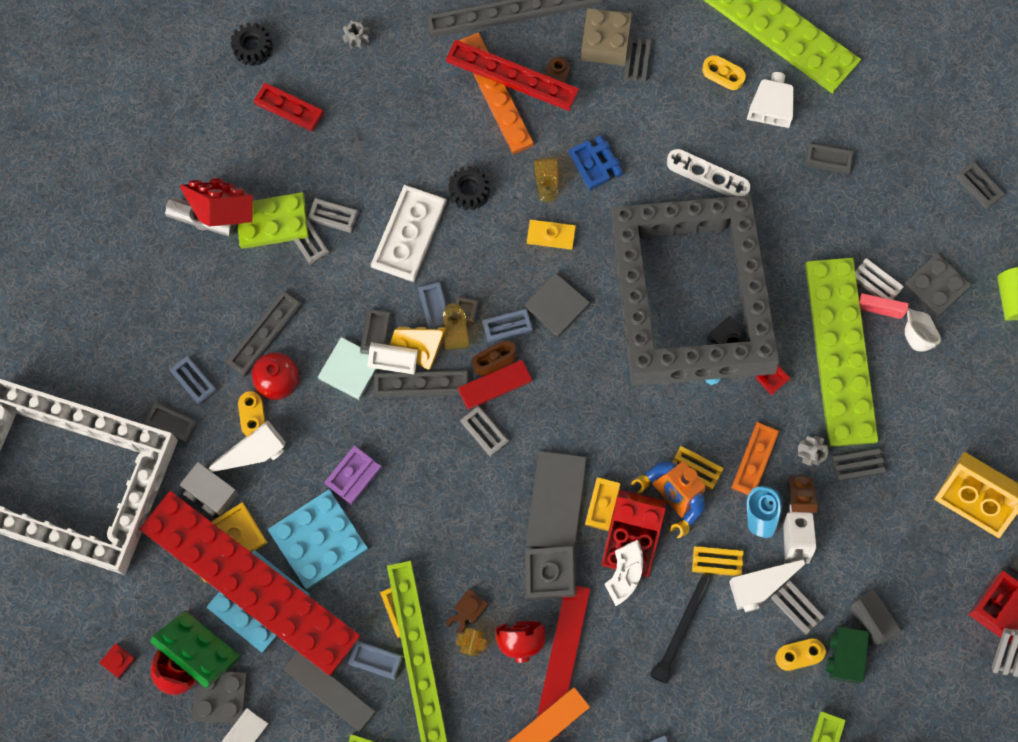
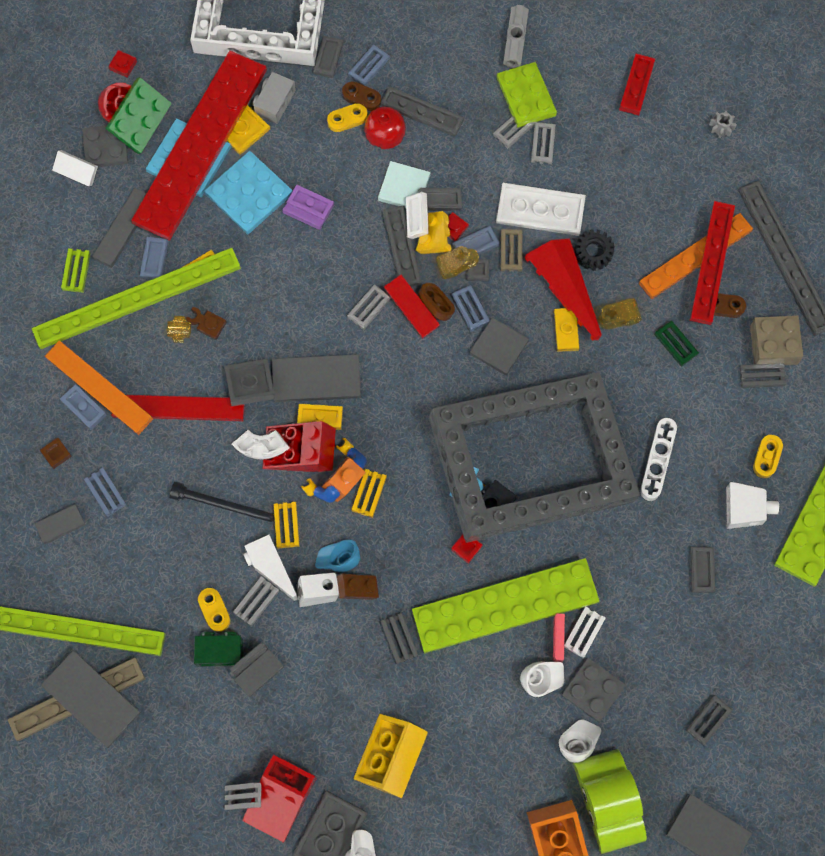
camera: 75 degrees right, 0 degrees up
(218, 202) = (527, 42): red slope -> none
(229, 394) = (361, 95): none -> reddish brown plate
(251, 55) = (687, 50): black tyre -> none
(253, 449) = (314, 123): white slope -> none
(409, 320) = (457, 226): none -> red plate
(449, 280) = (511, 266): none -> dark tan tile
(483, 225) = (561, 270): none -> red wedge
(521, 640) = (186, 367): red cylinder -> none
(589, 165) = (641, 350): blue plate -> none
(599, 117) = (670, 348): none -> dark green tile
(755, 458) = (388, 544): orange tile -> none
(813, 450) = (402, 592): light grey gear -> none
(984, 300) = (582, 735): none -> white cap

